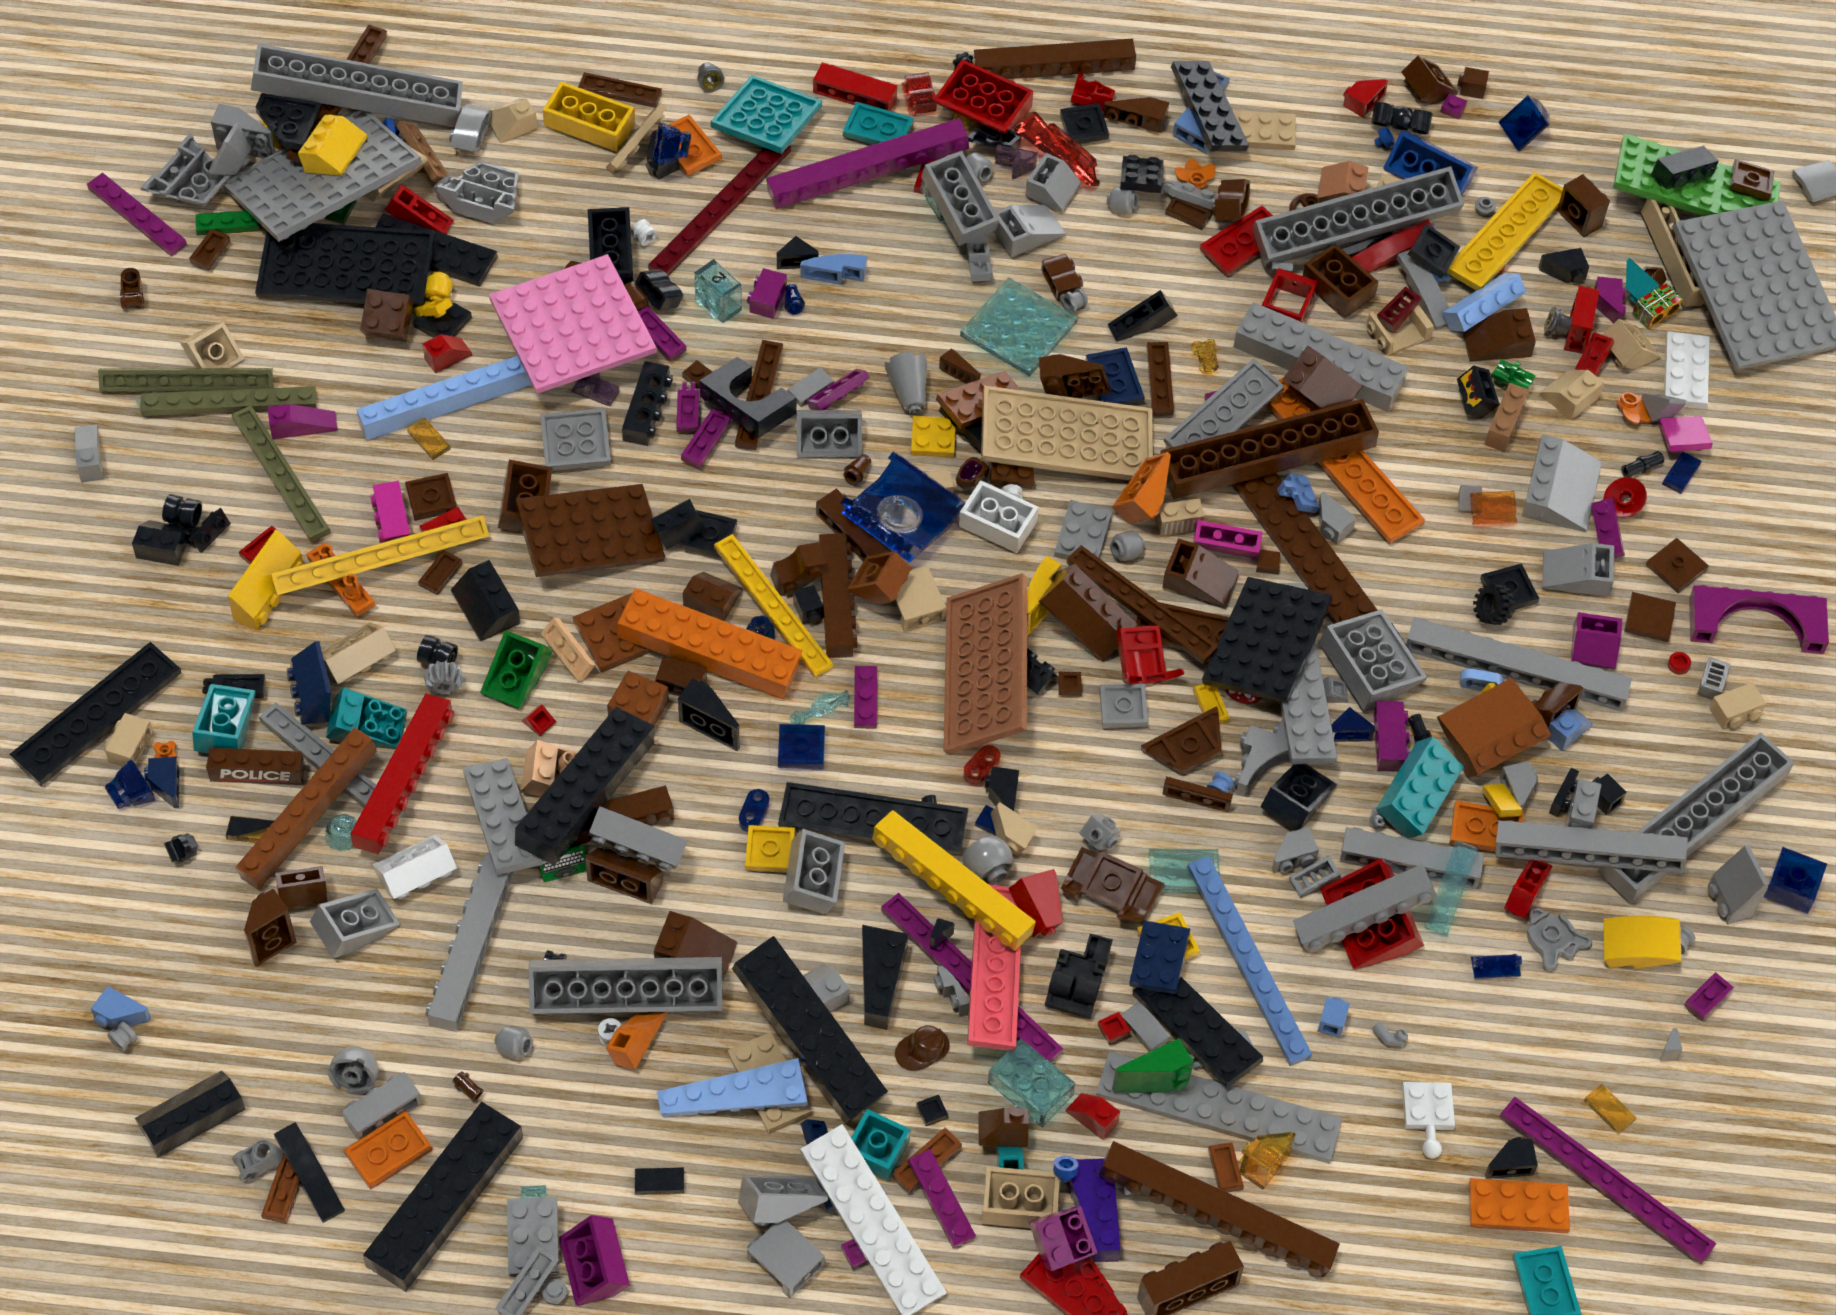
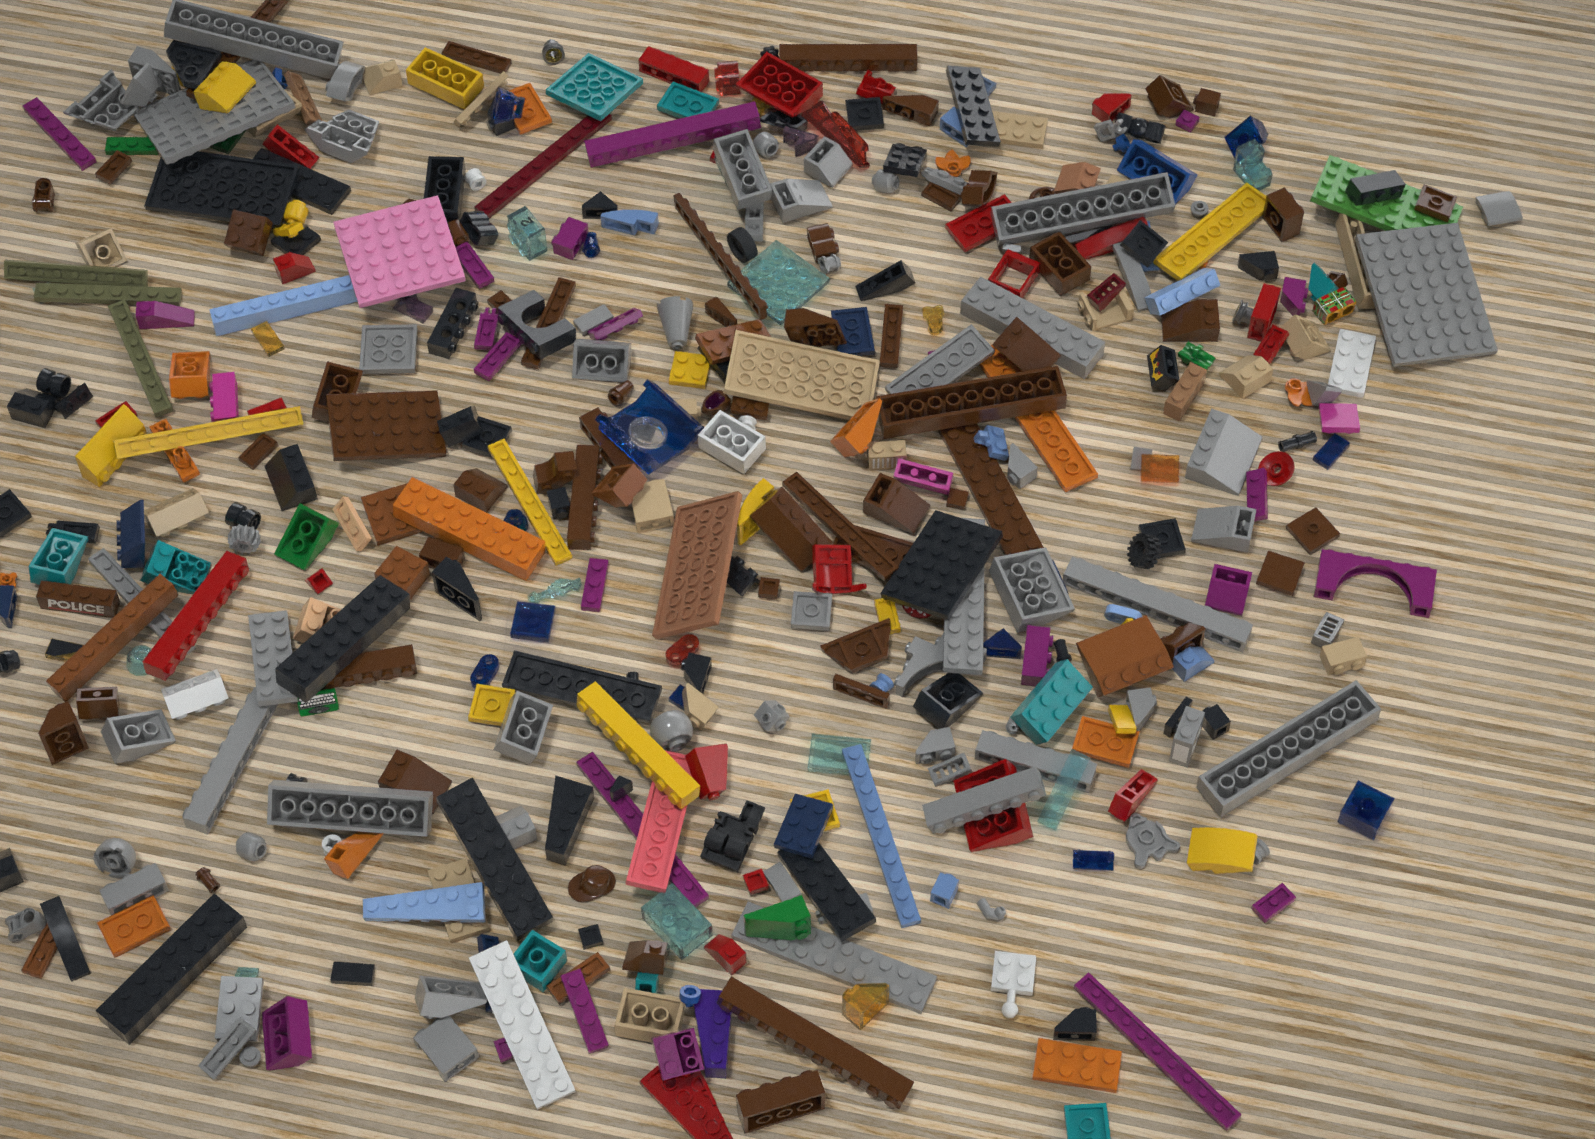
camera: 10 degrees right, 0 degrees up
(344, 488) = (190, 374): none -> orange slope
(430, 496) = (260, 387): reddish brown tile -> none
(623, 874) = (365, 715): reddish brown slope -> none
(637, 838) = (375, 684): light grey brick -> none
(948, 301) = (723, 260): none -> reddish brown plate
(951, 988) = (622, 836): light grey slope -> none
(971, 286) = (742, 244): none -> black tyre
(1083, 526) = (804, 456): light grey plate -> none
(1113, 884) = (775, 761): reddish brown piece -> none
(1127, 545) = (837, 475): light grey head -> none
(1225, 1167) = (830, 1008): dark orange tile -> none
(1335, 690) = (994, 613): light grey slope -> none
(1368, 123) = (1107, 130): none -> light grey plate
(1535, 151) = (1250, 165): none -> clear light blue brick
(1591, 846) = (1189, 765): light grey brick -> none
(1610, 1109) = (1170, 991): clear yellow tile -> none
(1673, 1047) = (1233, 943): light grey slope -> none
(1679, 663) = (1299, 615): red tile -> none
(1738, 886) = (1312, 811): light grey slope -> none

